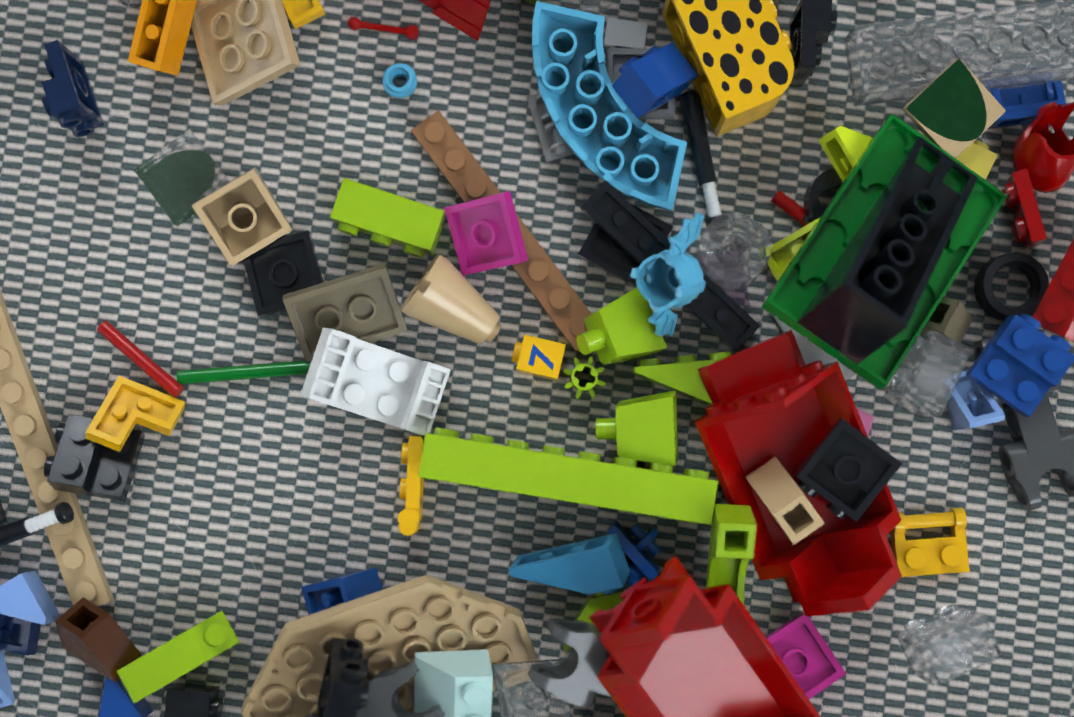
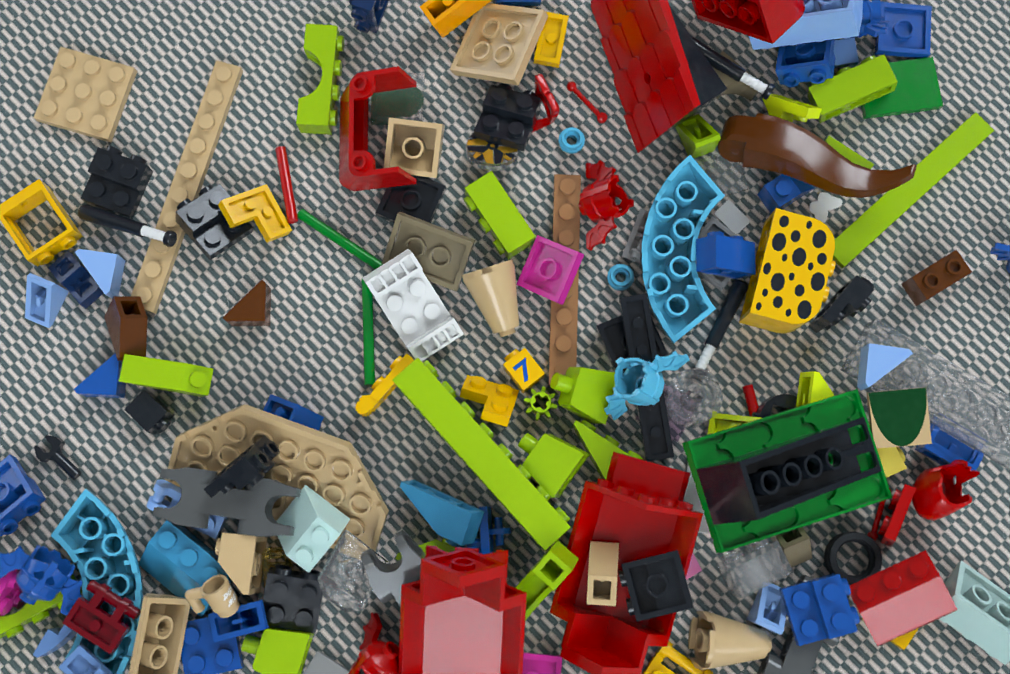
camera: 35 degrees right, 5 degrees down
(107, 256) = (317, 110): none -> lime arch
(195, 280) = (356, 164): none -> red windscreen
(211, 515) = (253, 308): none -> reddish brown slope
(315, 107) = (508, 117): none -> black plate
(325, 154) = (489, 155): none -> tile
(333, 54) = (552, 109): none -> red piece
(353, 448) = (368, 335): none -> green bar
(480, 124) = (599, 202): none -> red helmet
(537, 407) = (497, 398): none -> yellow plate
(562, 173) = (620, 269): none -> medium azure plate
(892, 70) = (877, 362): none -> light blue slope
(952, 469) = (725, 641): none -> tan cone
(1011, 246) = (873, 533): none -> red hinge

